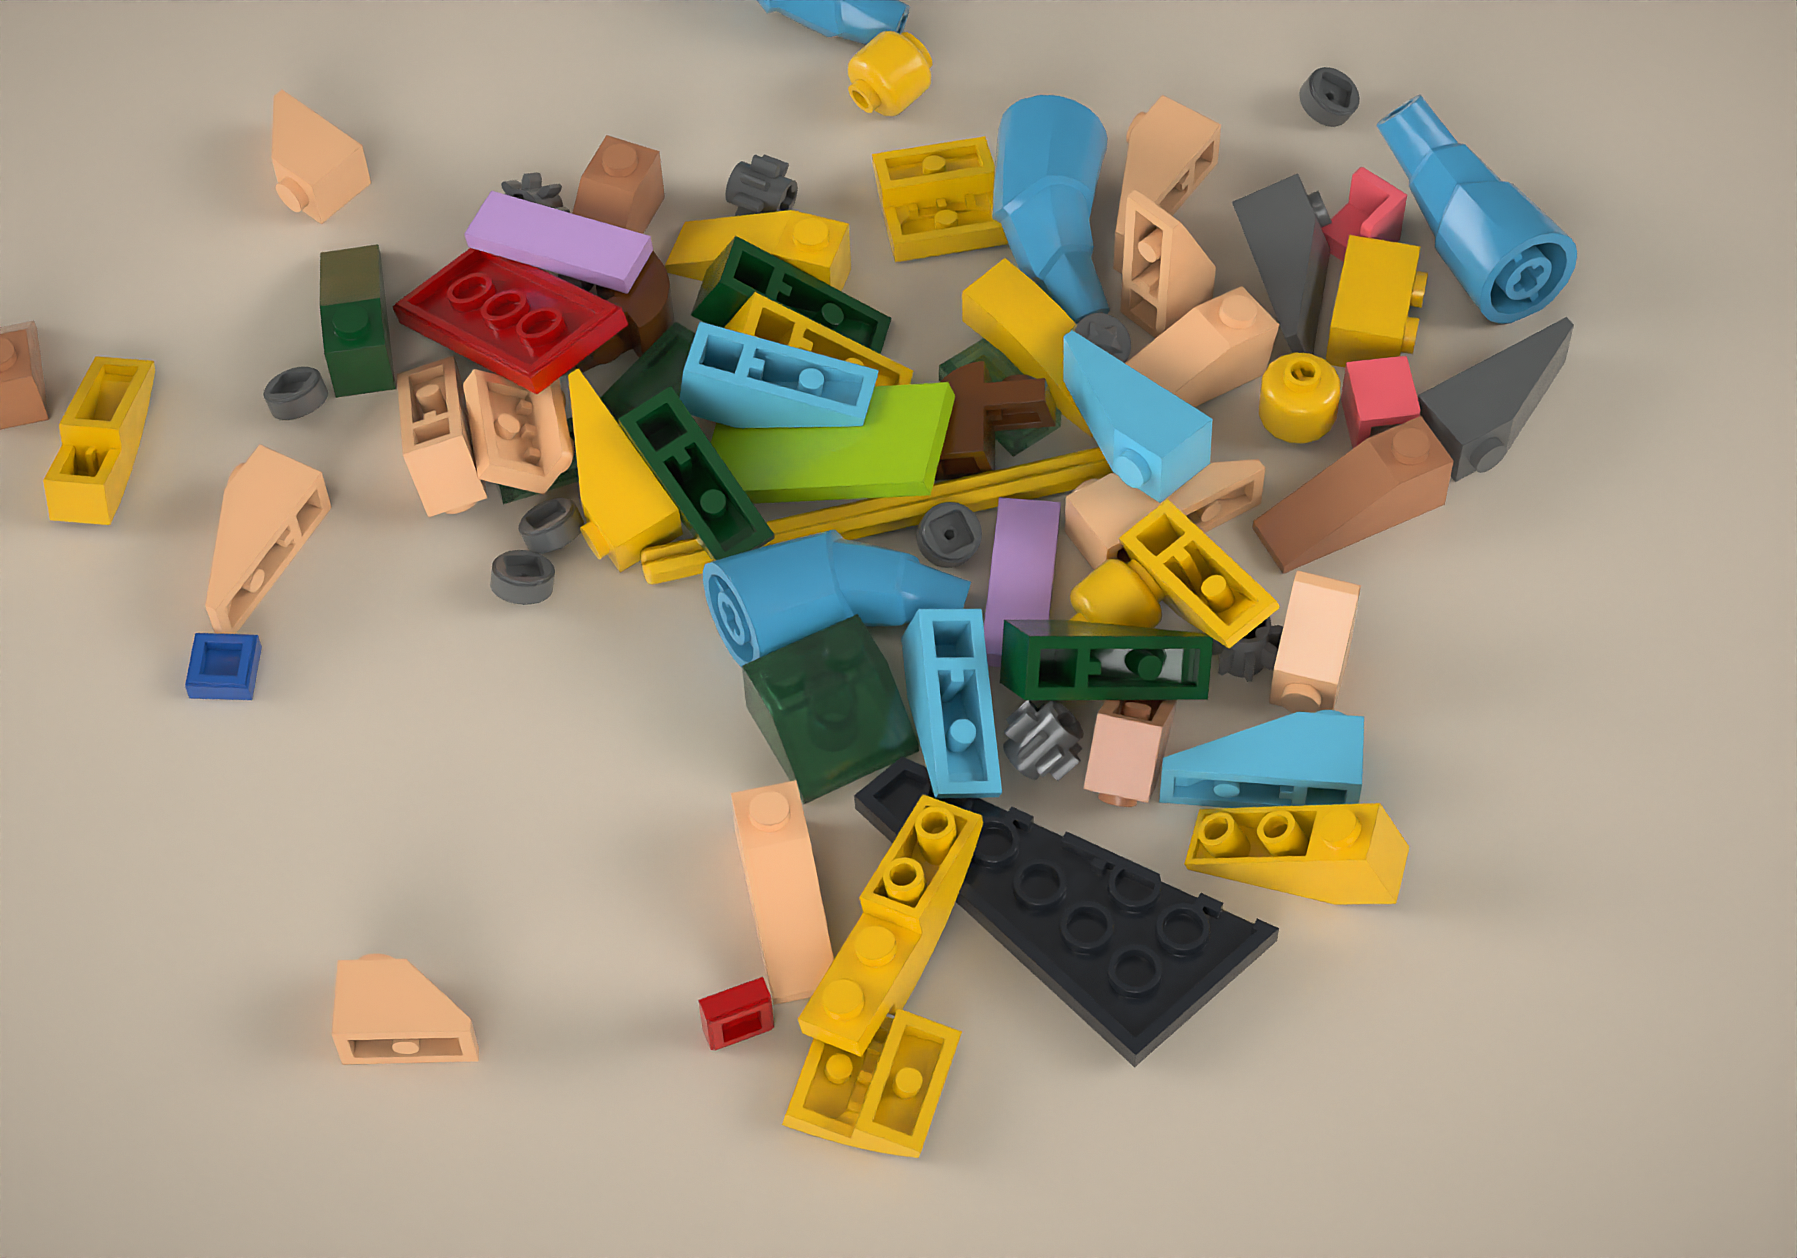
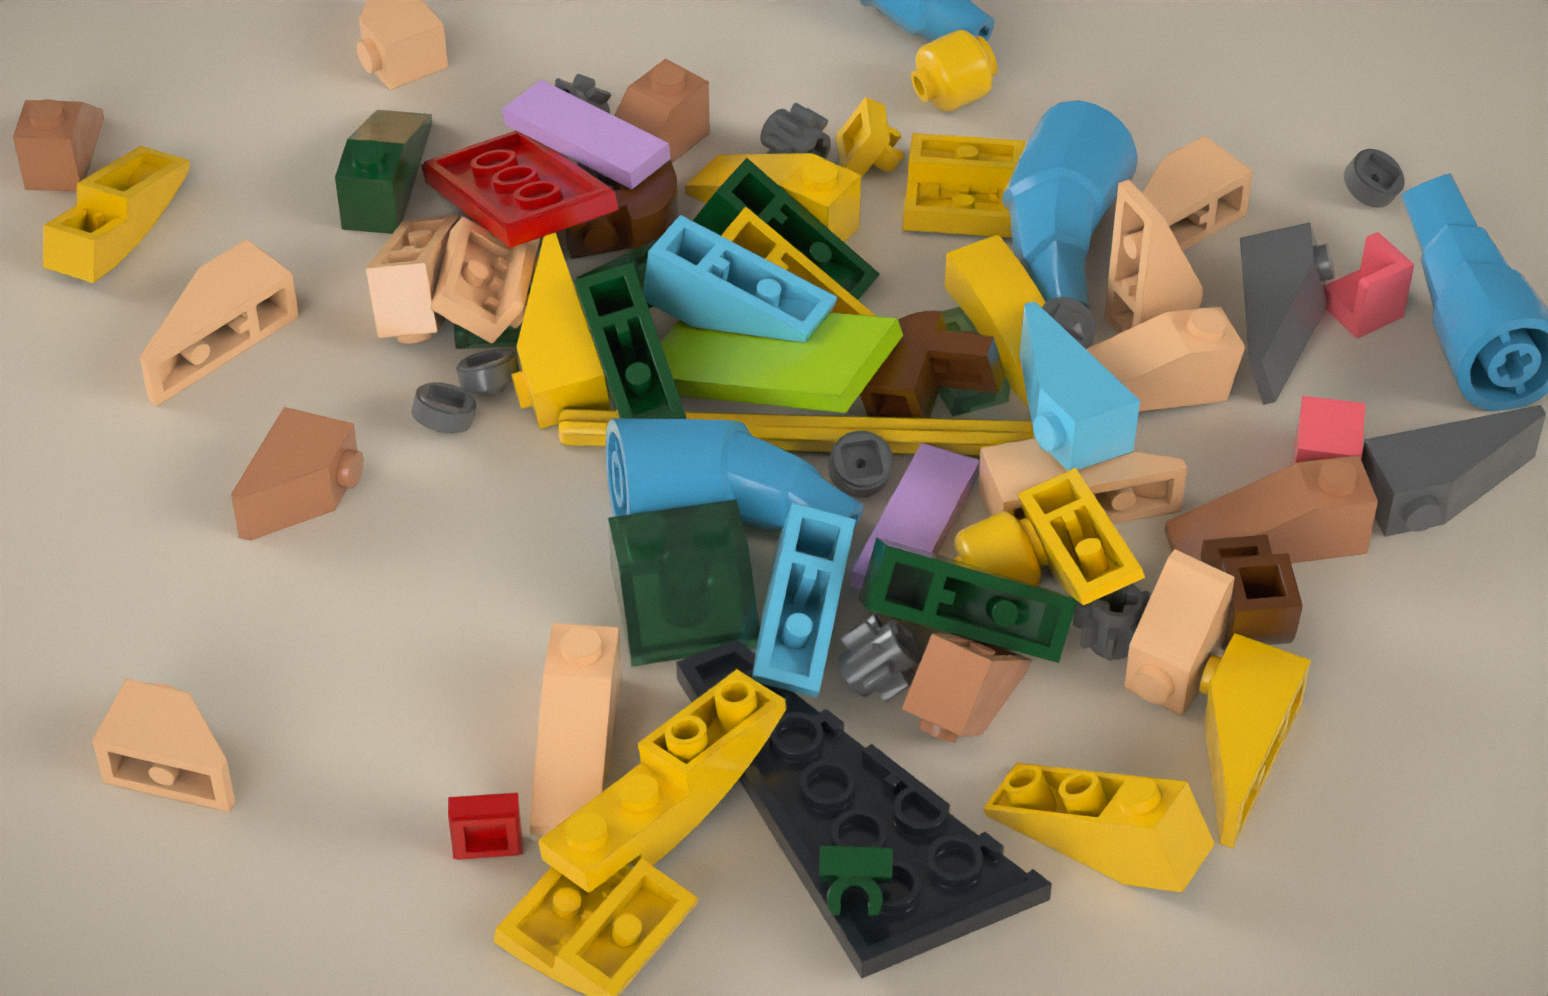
camera: 15 degrees right, 10 degrees down
(223, 666) = (142, 421): blue tile -> none
(295, 393) = (304, 214): dark grey tile -> none
(408, 687) = (296, 473): none -> nougat slope
(829, 173) = (868, 140): none -> yellow tile
(1104, 969) = (855, 869): none -> dark green tile
(1276, 763) = (1096, 731): medium azure slope -> none
(1299, 397) = (1247, 420): yellow head -> none
(1374, 301) = (1356, 353): yellow brick -> none
(1389, 588) = (1264, 591): none -> reddish brown brick
(1398, 699) = (1248, 715): none -> yellow slope

